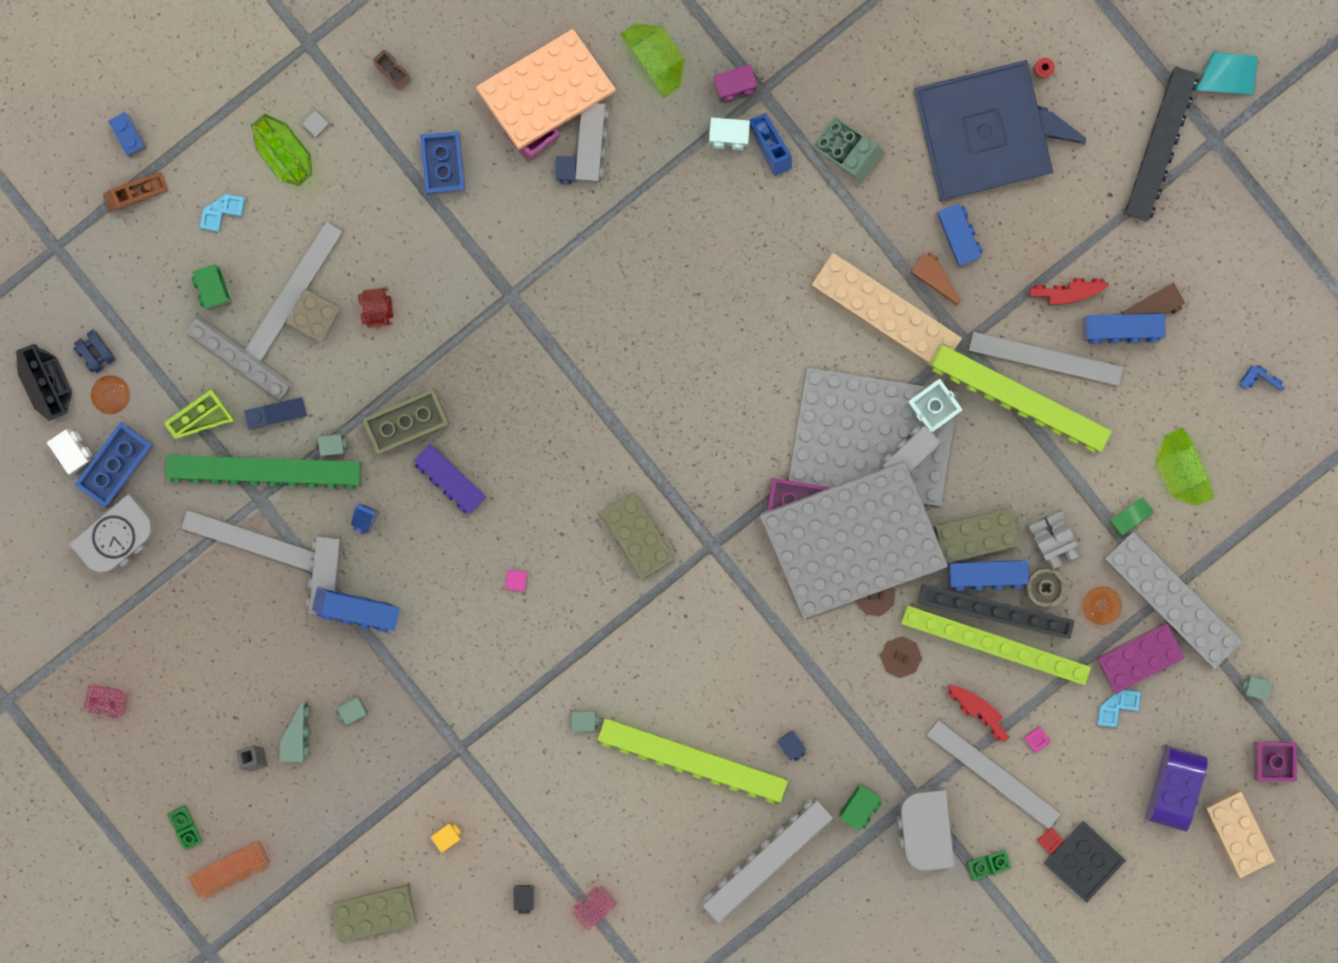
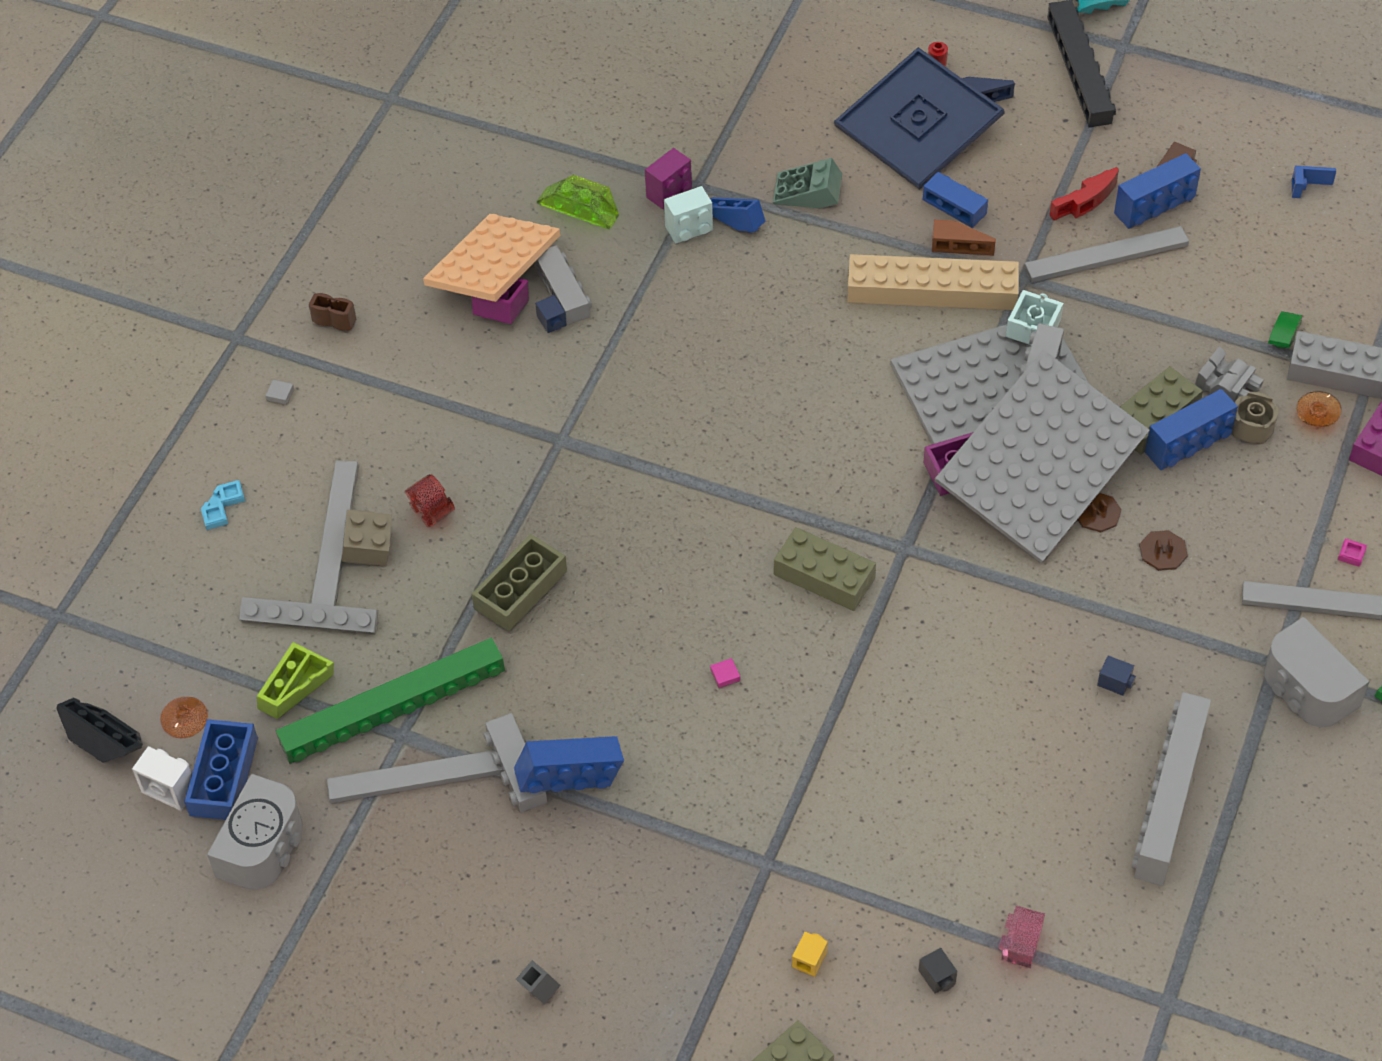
camera: 25 degrees left, 35 degrees down
(83, 349) = (146, 680): dark blue brick -> none
(105, 700) = (332, 1012): clear pink brick -> none
(127, 134) = (87, 480): blue brick -> none
(134, 192) = (116, 526): dark orange slope -> none
(211, 287) = (245, 560): green brick -> none
(275, 413) = (372, 646): dark blue slope -> none
(282, 150) = (254, 422): clear neon green wedge -> none
(294, 742) = (579, 938): sand green slope -> none
(332, 445) = (452, 640): sand green brick -> none
(351, 711) = (624, 880): sand green brick -> none
(364, 518) = (526, 678): blue slope -> none
(442, 163) = (426, 359): blue brick -> none
(450, 479) = (597, 613): dark purple brick -> none
(584, 720) = (884, 762): sand green brick -> none
(694, 760) = (1024, 740): lime brick -> none
(859, 807) = (1229, 689): green brick -> none
(973, 704) = (1271, 547): red slope -> none
(995, 645) = (1246, 488): lime brick -> none
(996, 611) = (1223, 458): black brick -> none
(1020, 398) = (1108, 280): lime brick -> none
(1183, 469) = (1303, 271): clear neon green wedge -> none

